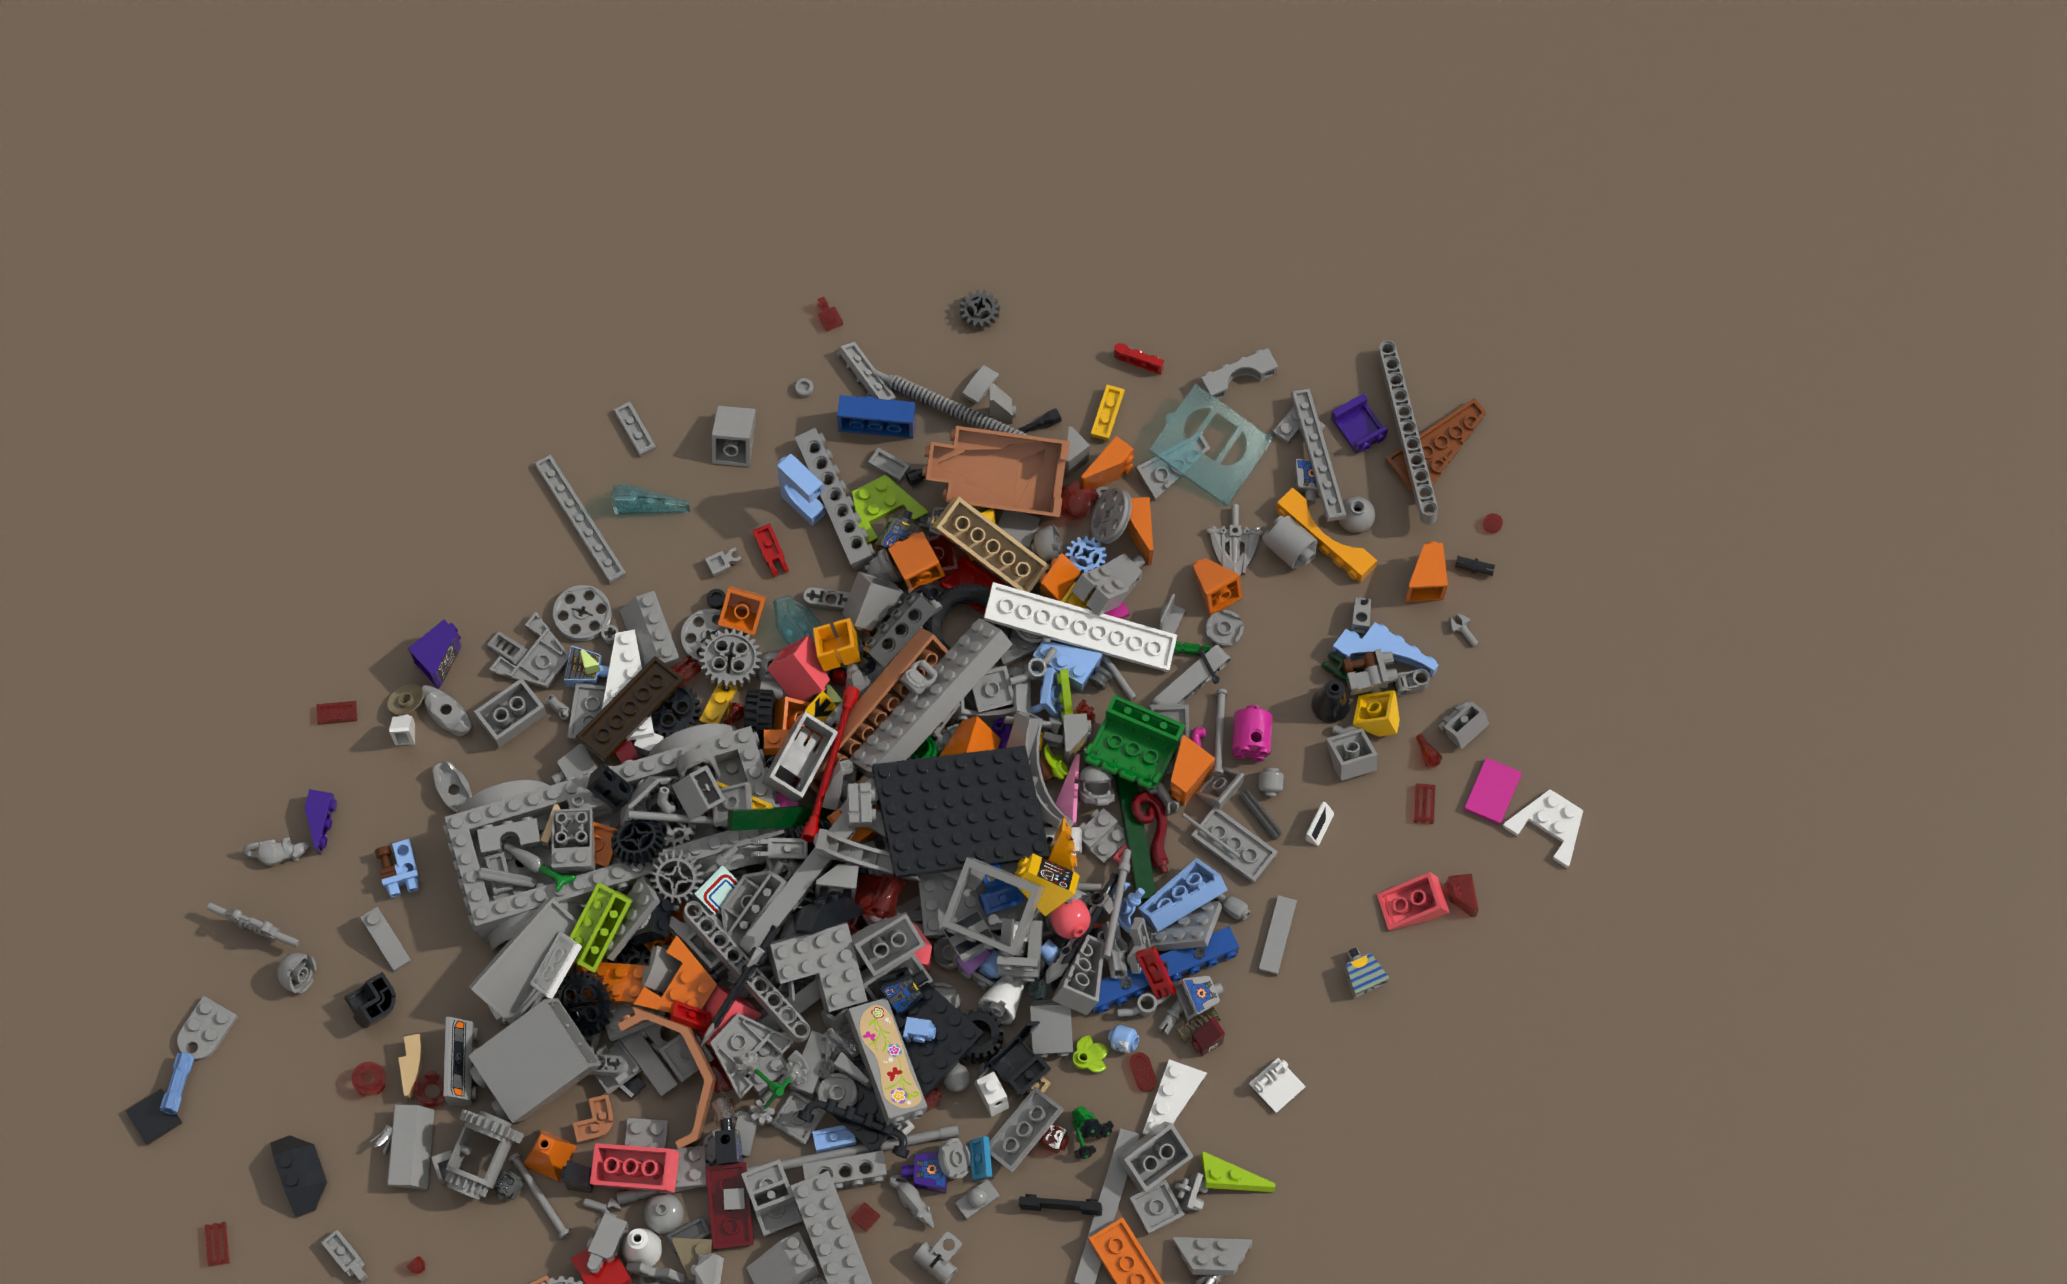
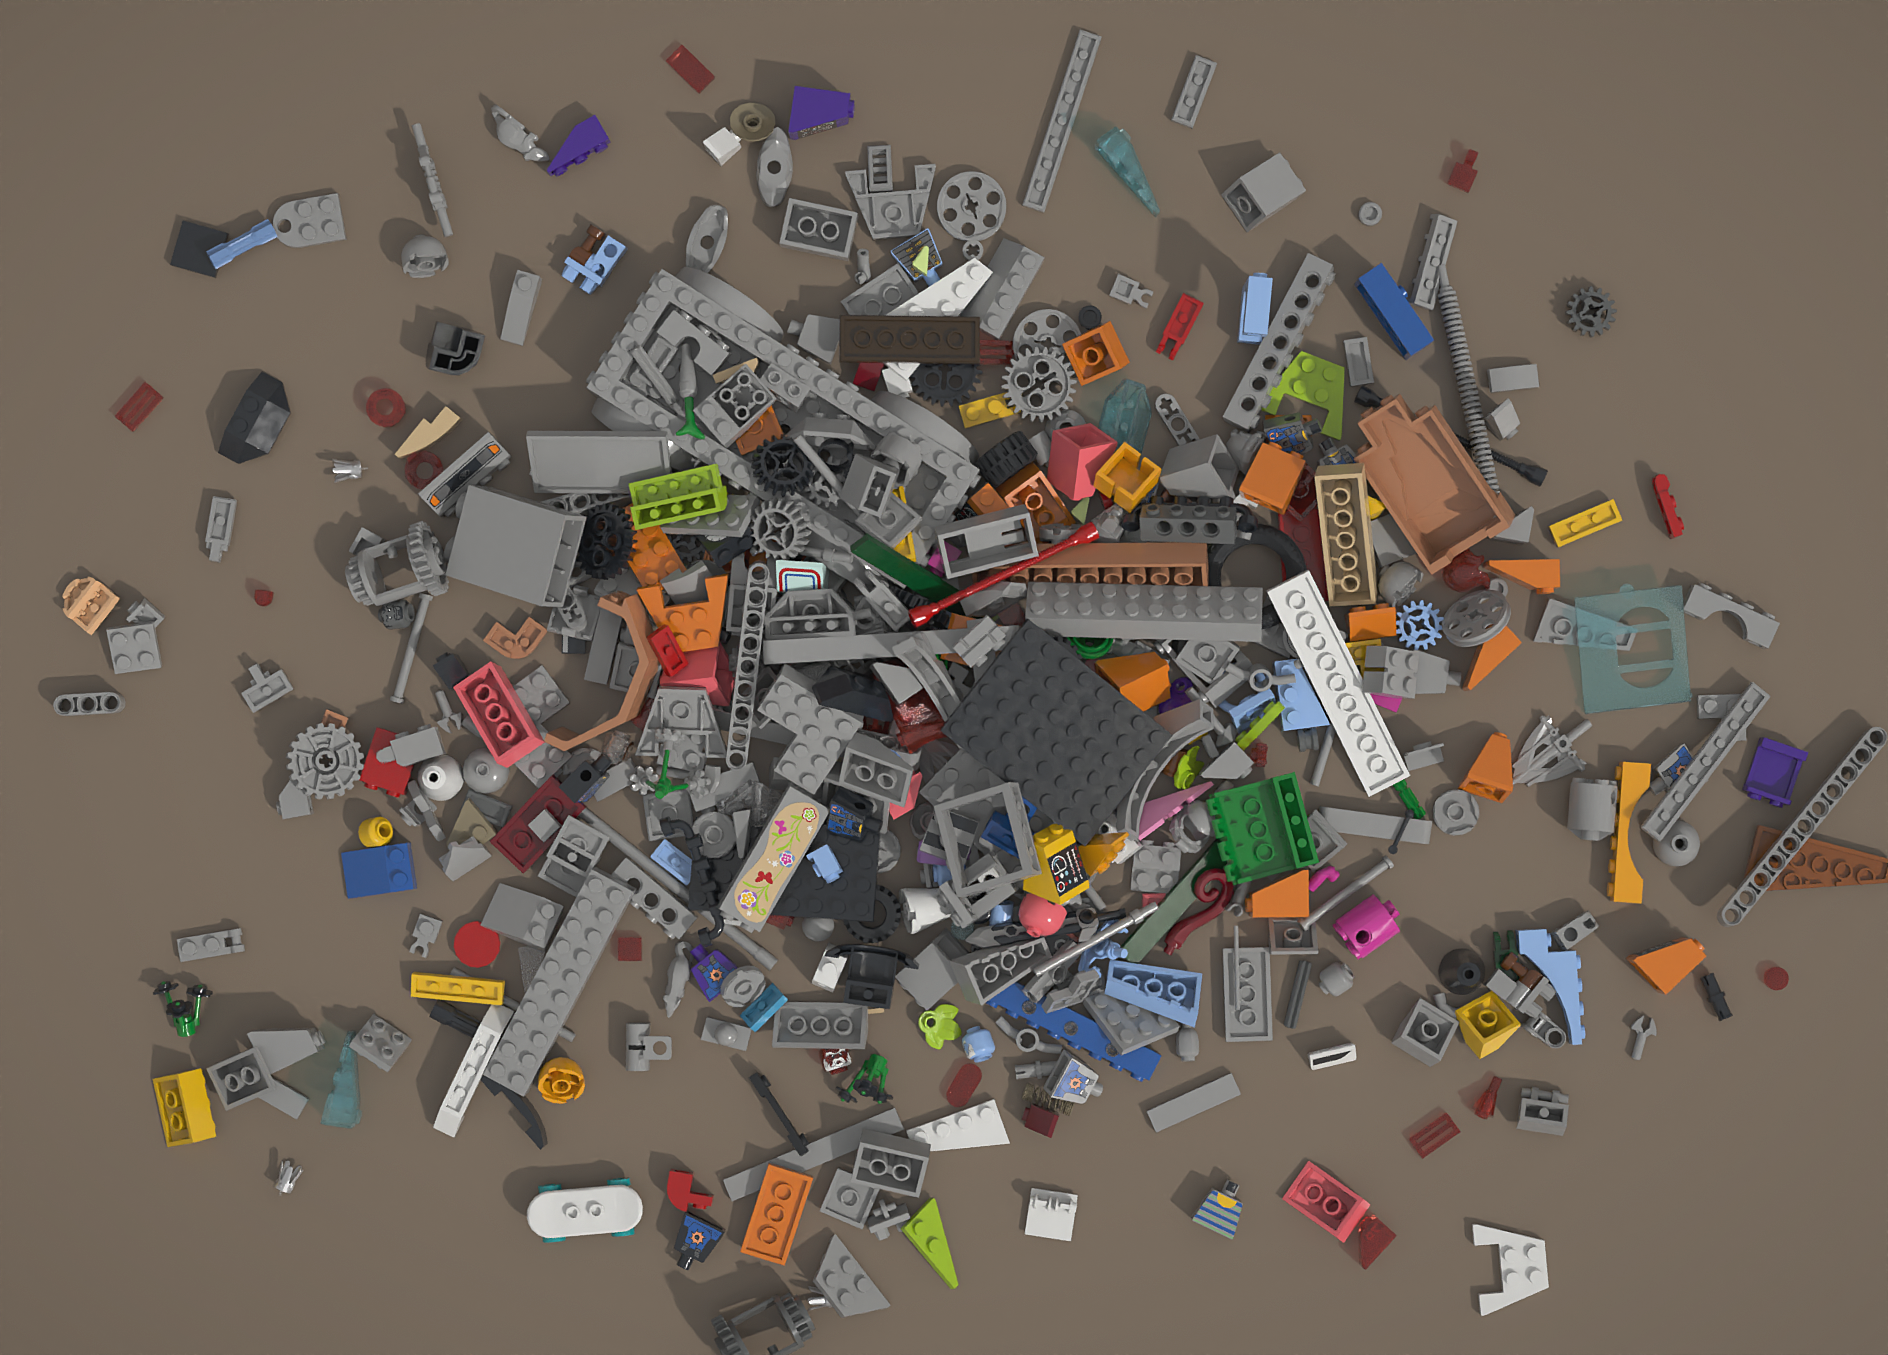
camera: 55 degrees right, 20 degrees up
(410, 1147) = (357, 499): light grey slope -> none
(549, 1155) = (464, 626): orange slope -> none
(555, 965) = (612, 490): white tile -> none
(609, 787) = (809, 396): black brick -> none
(666, 807) = (836, 456): light grey arm -> none
(734, 713) = (991, 433): clear red cone -> none
(757, 956) = (761, 671): black sword -> none
(821, 707) = (1058, 511): sticker -> none
(916, 681) = (1148, 584): light grey piece -> none
(1155, 972) = (1058, 1028): red hinge -> none
(1493, 791) = (1499, 1189): dark pink tile -> none

